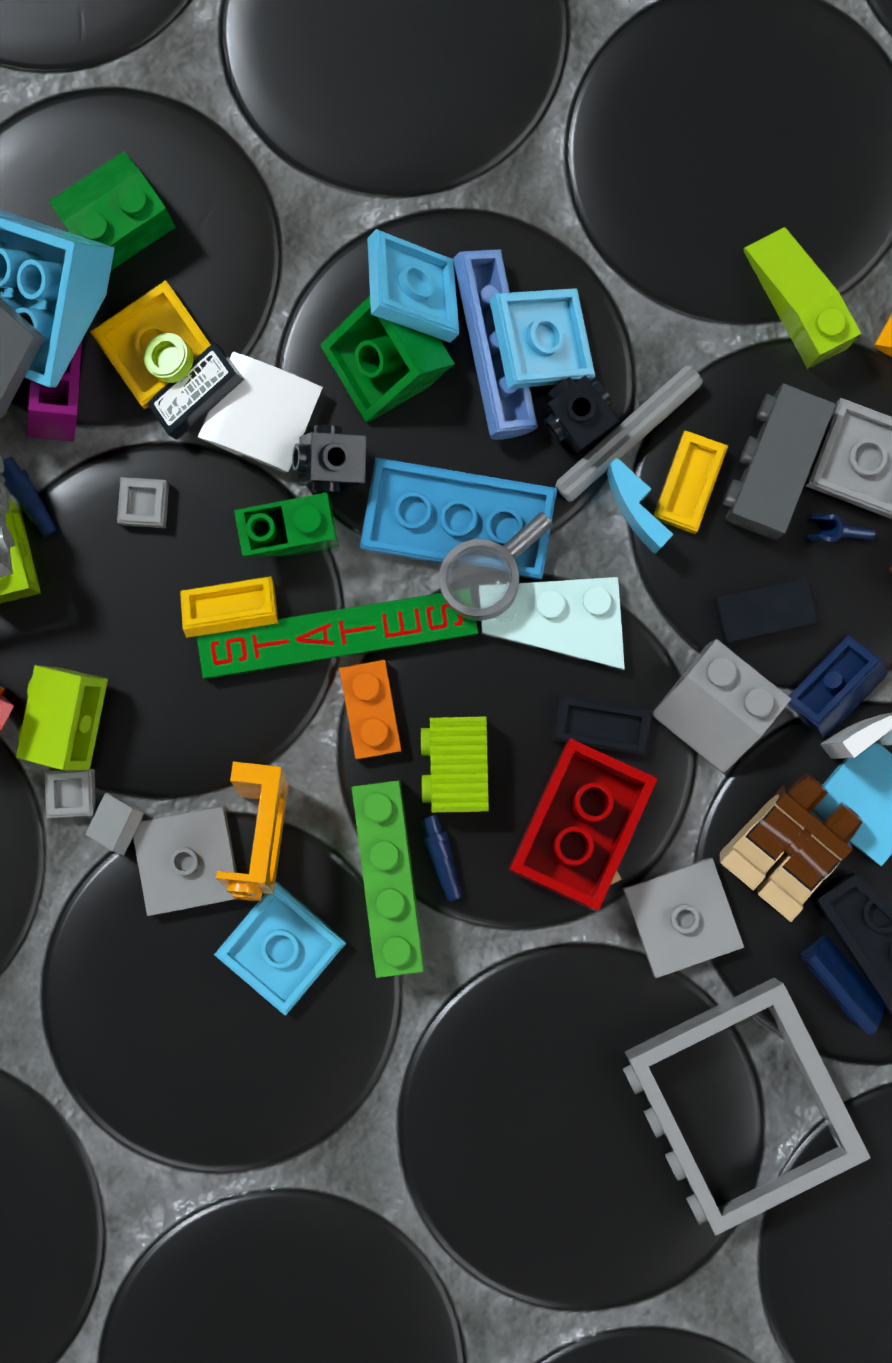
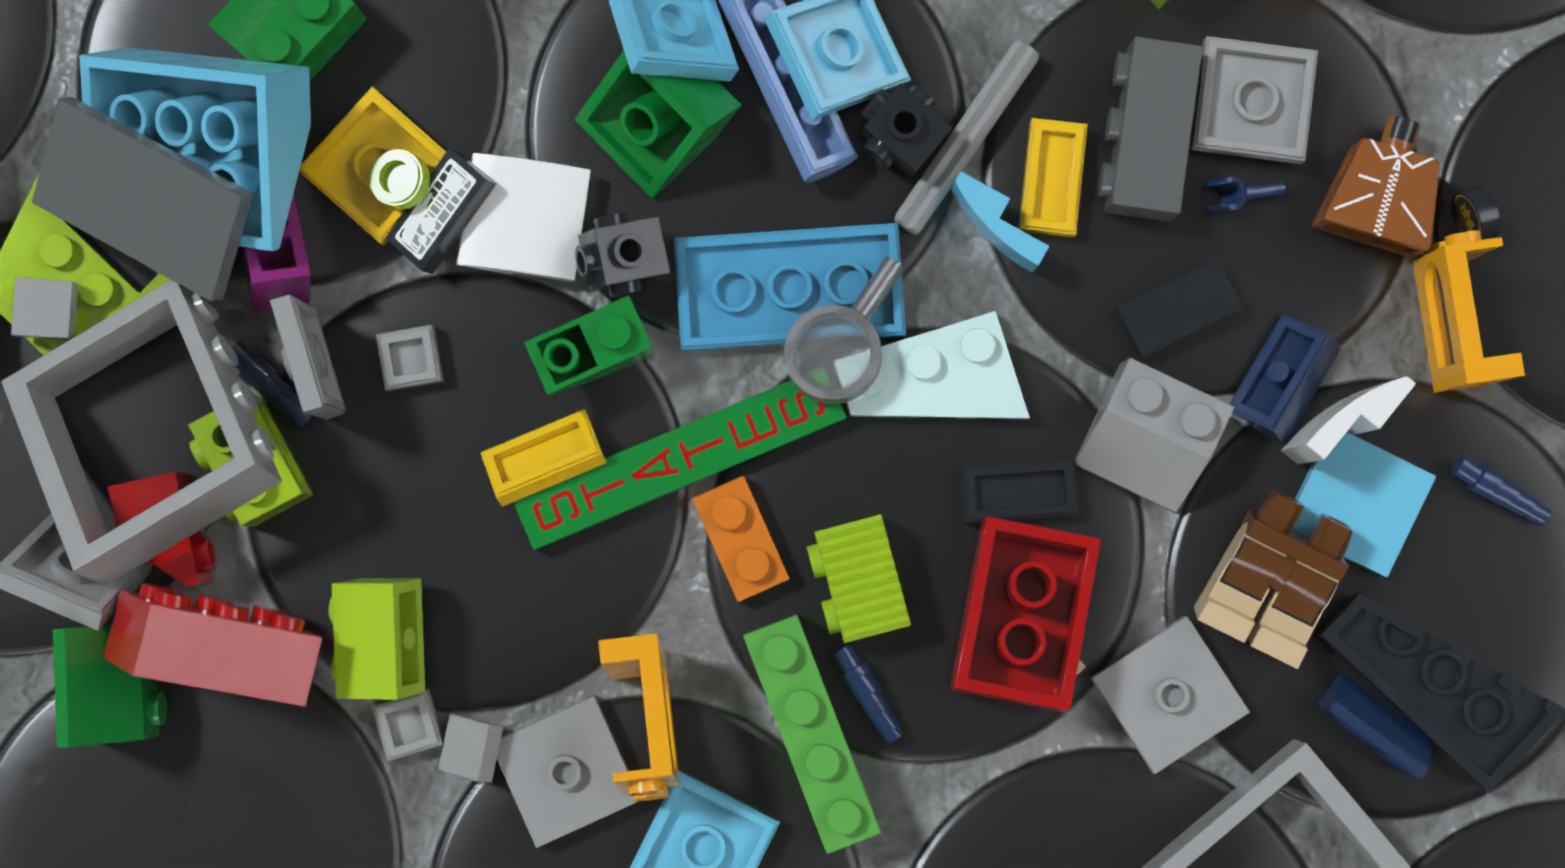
camera: 20 degrees left, 0 degrees up
(60, 481) = (307, 358): none -> light grey plate

